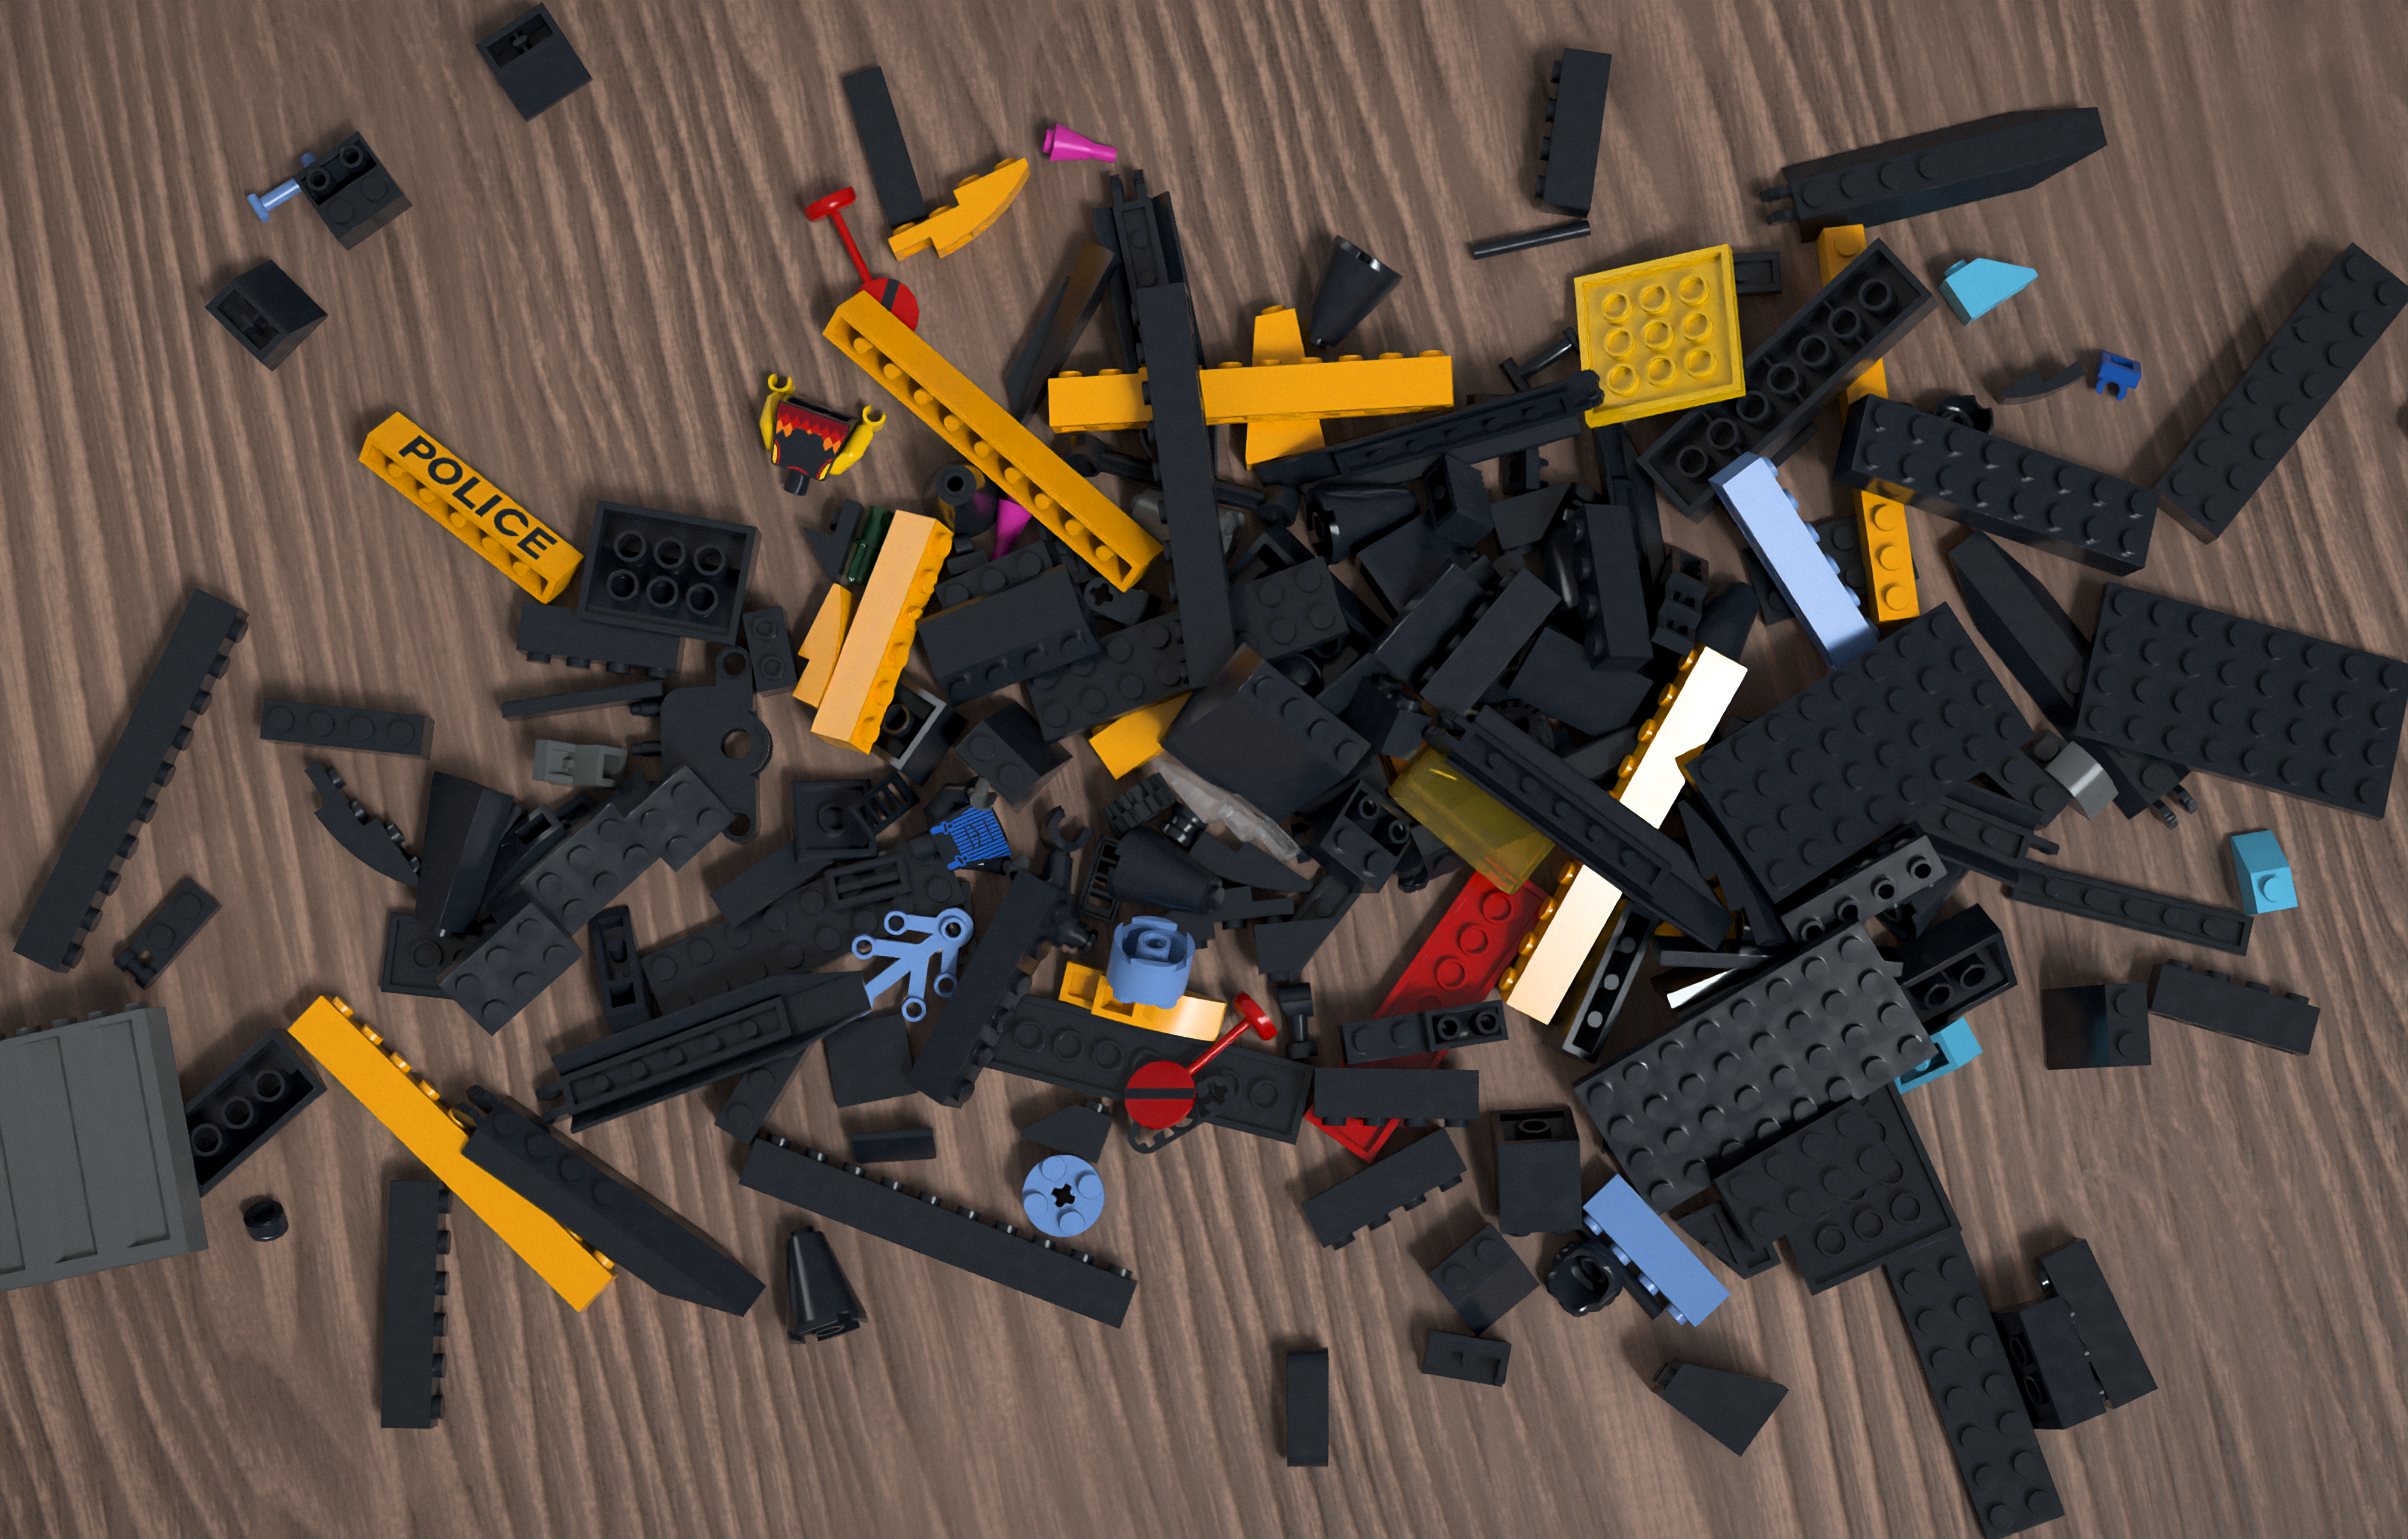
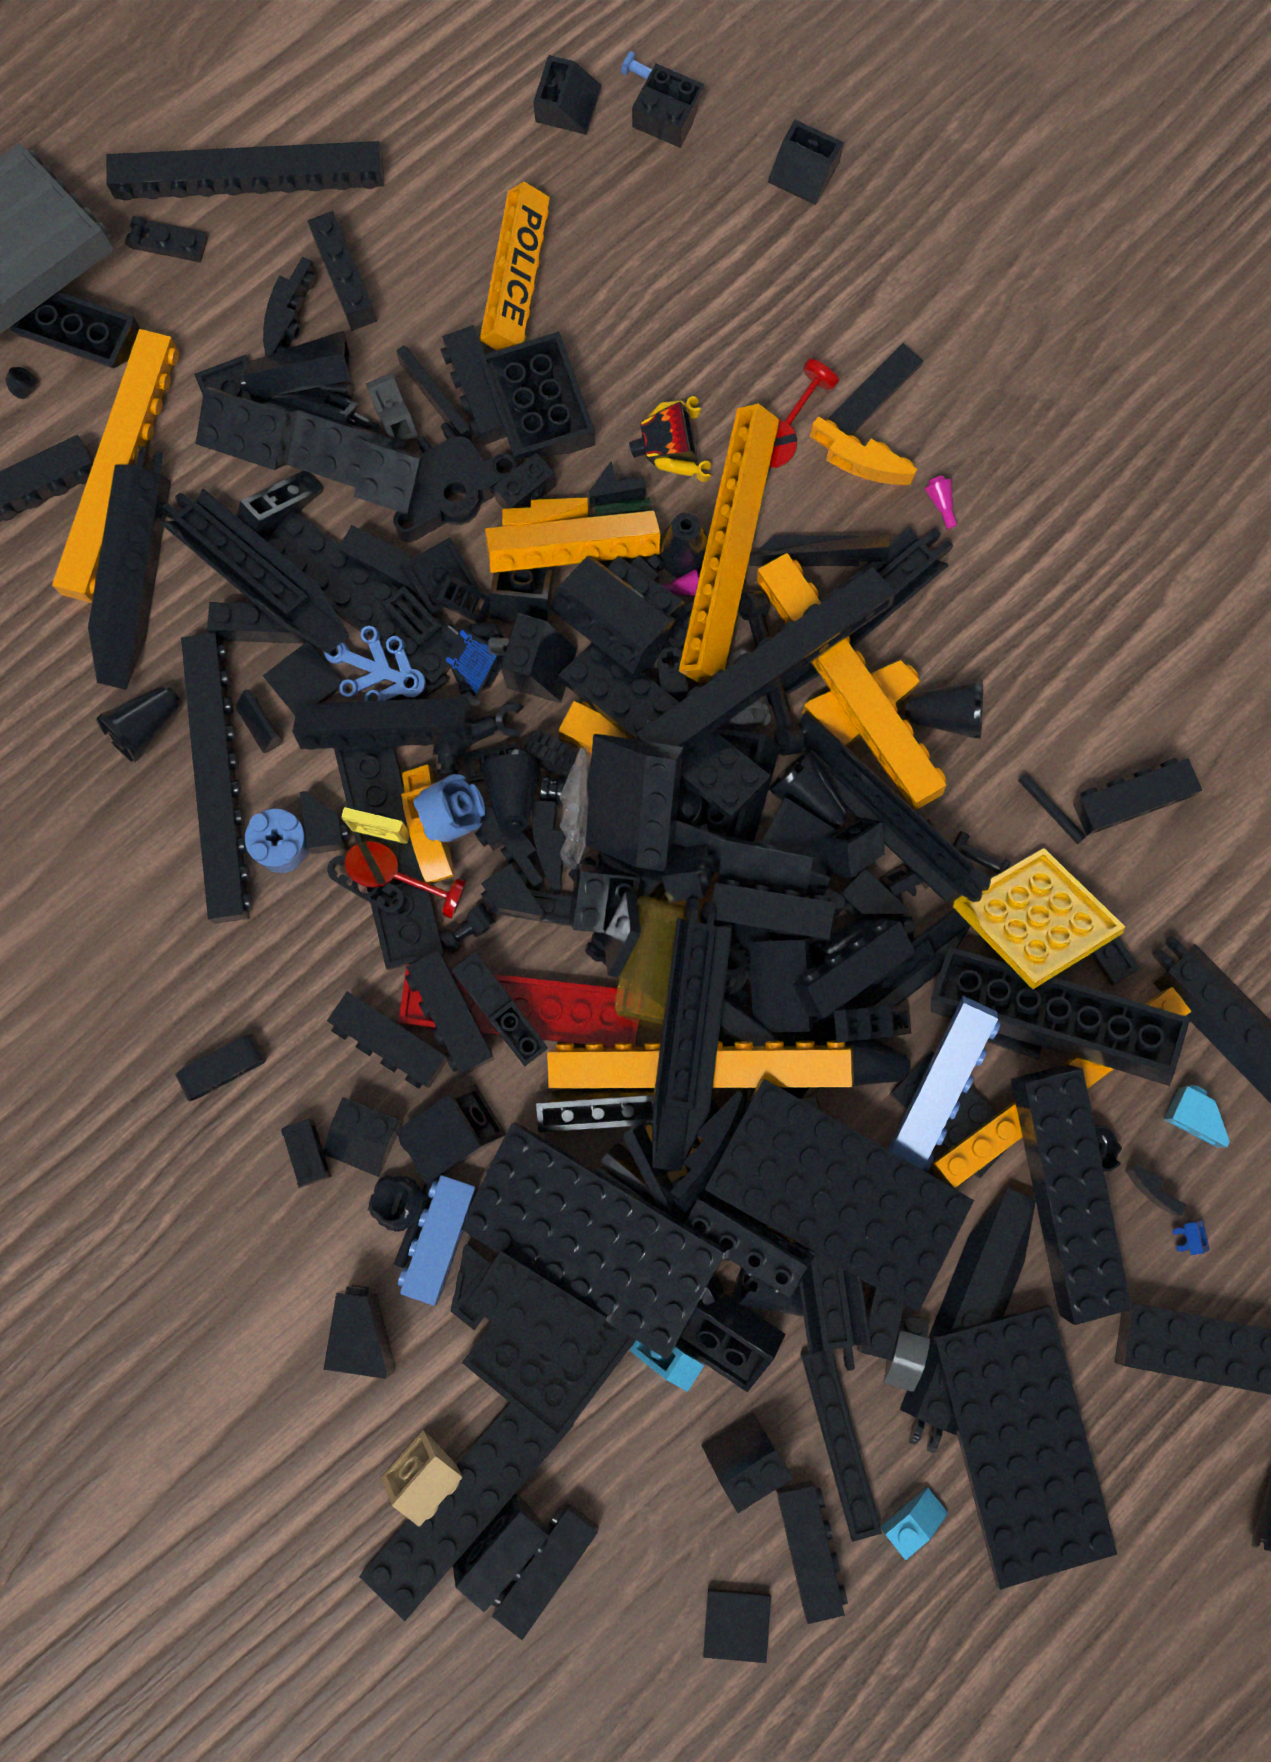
camera: 60 degrees right, 5 degrees down
(1120, 1063) = (375, 825): none -> light yellow tile
(1424, 837) = (622, 934): none -> black tile
(1918, 1412) = (421, 1479): none -> tan slope
(2267, 1137) = (736, 1625): none -> black tile

